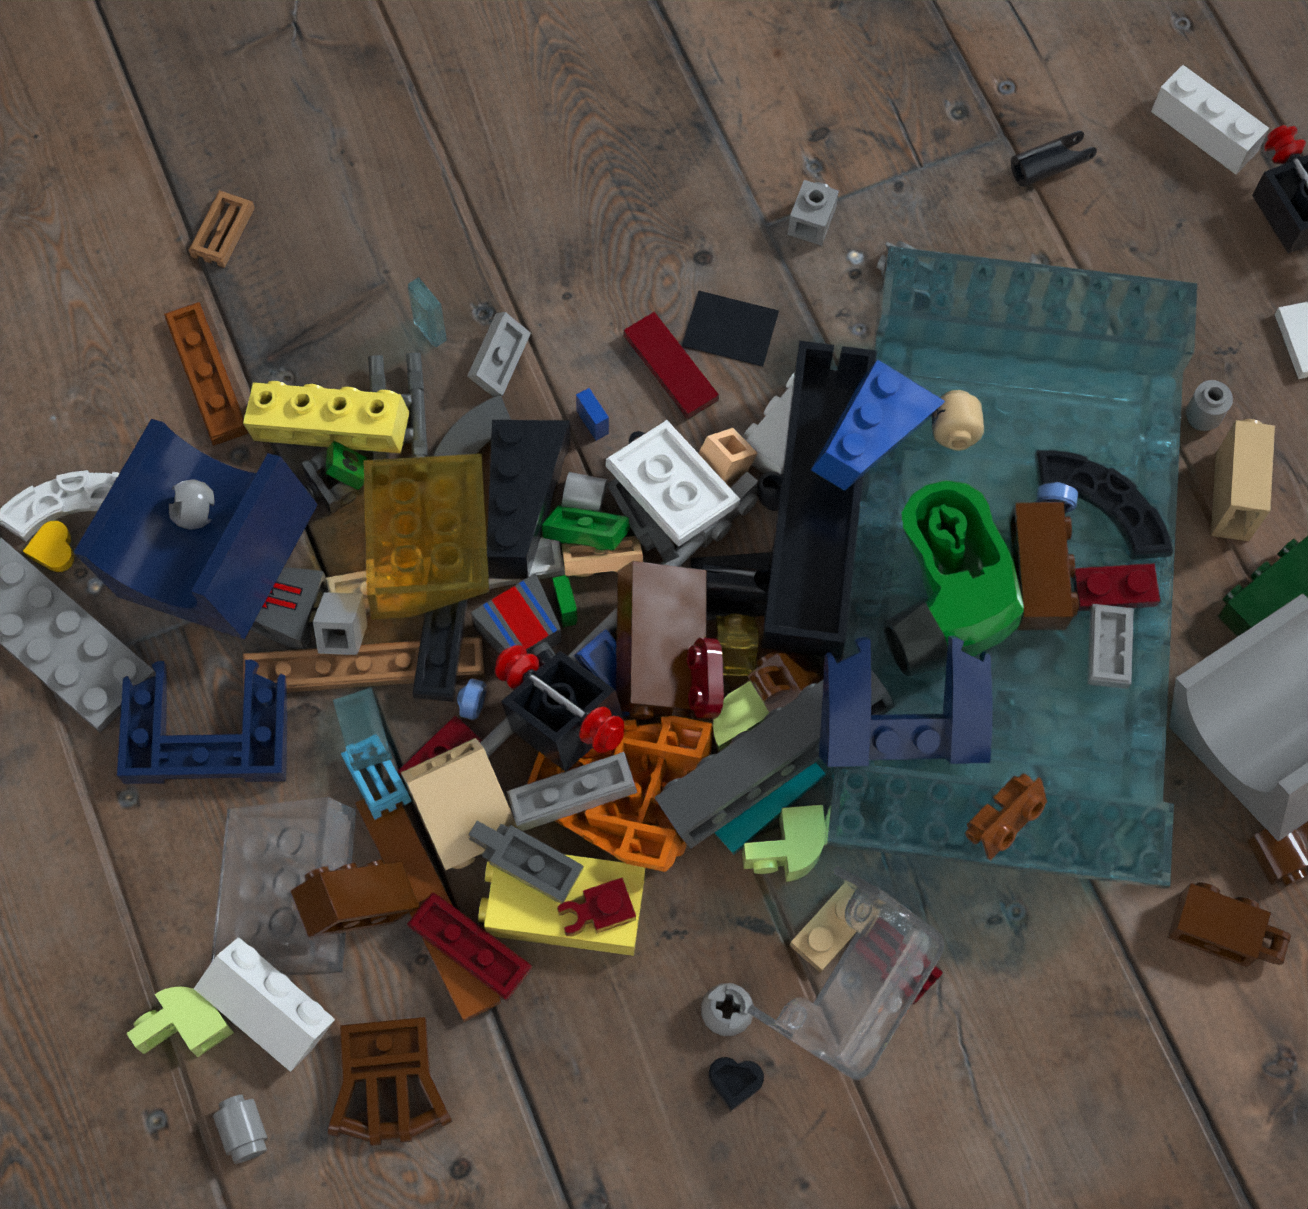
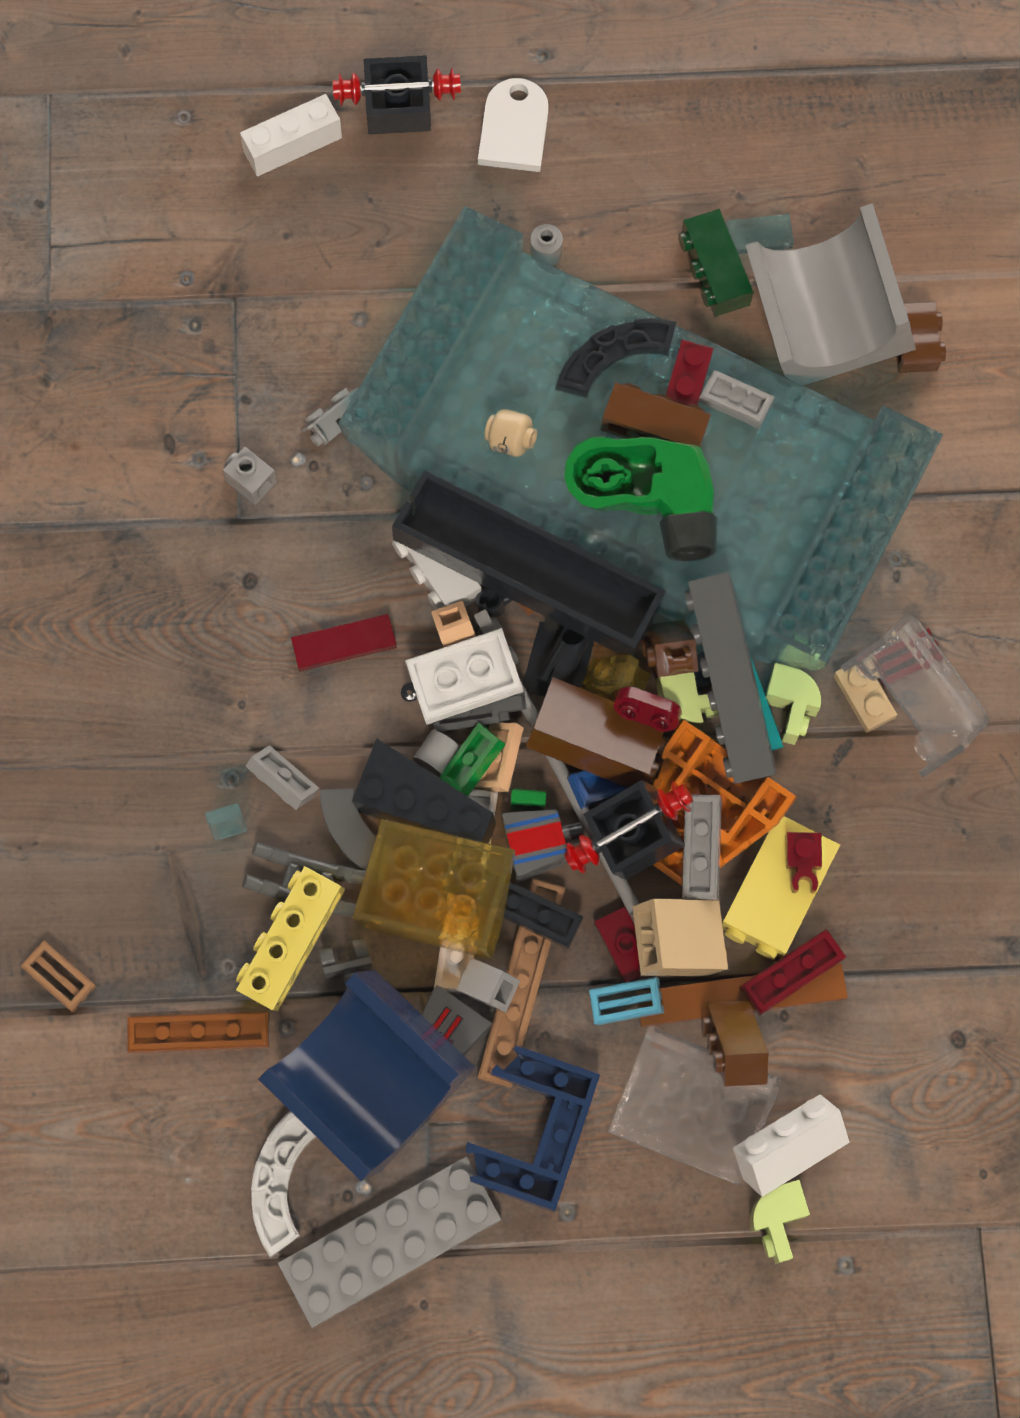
camera: 70 degrees left, 5 degrees up
(51, 547) = (317, 1213): yellow tile -> none
(191, 504) = (346, 1071): light grey piece -> none
(240, 1129) = (879, 1196): light grey brick -> none
(345, 465) = (340, 937): green tile -> none
(362, 729) = (581, 998): clear light blue tile -> none
(380, 1053) = (854, 1069): reddish brown plate -> none
(472, 699) = (586, 902): medium blue tile -> none
(527, 860) = (748, 899): dark grey hinge -> none
(592, 414) = (368, 720): blue tile -> none
(713, 1017) = (897, 786): light grey piece -> none
(730, 328) = (325, 583): black sticker -> none
(735, 1081) = (959, 810): black tile -> none
(855, 736) = (750, 606): dark blue wedge -> none
(874, 422) = (498, 497): blue wedge -> none
(1021, 802) = (864, 535): dark orange hinge -> none
(1049, 159) = (275, 275): black piece -> none
(1058, 493) = (602, 386): medium blue tile -> none
(1226, 926) = (962, 413): reddish brown brick -> none
(1243, 480) = (621, 248): tan brick -> none

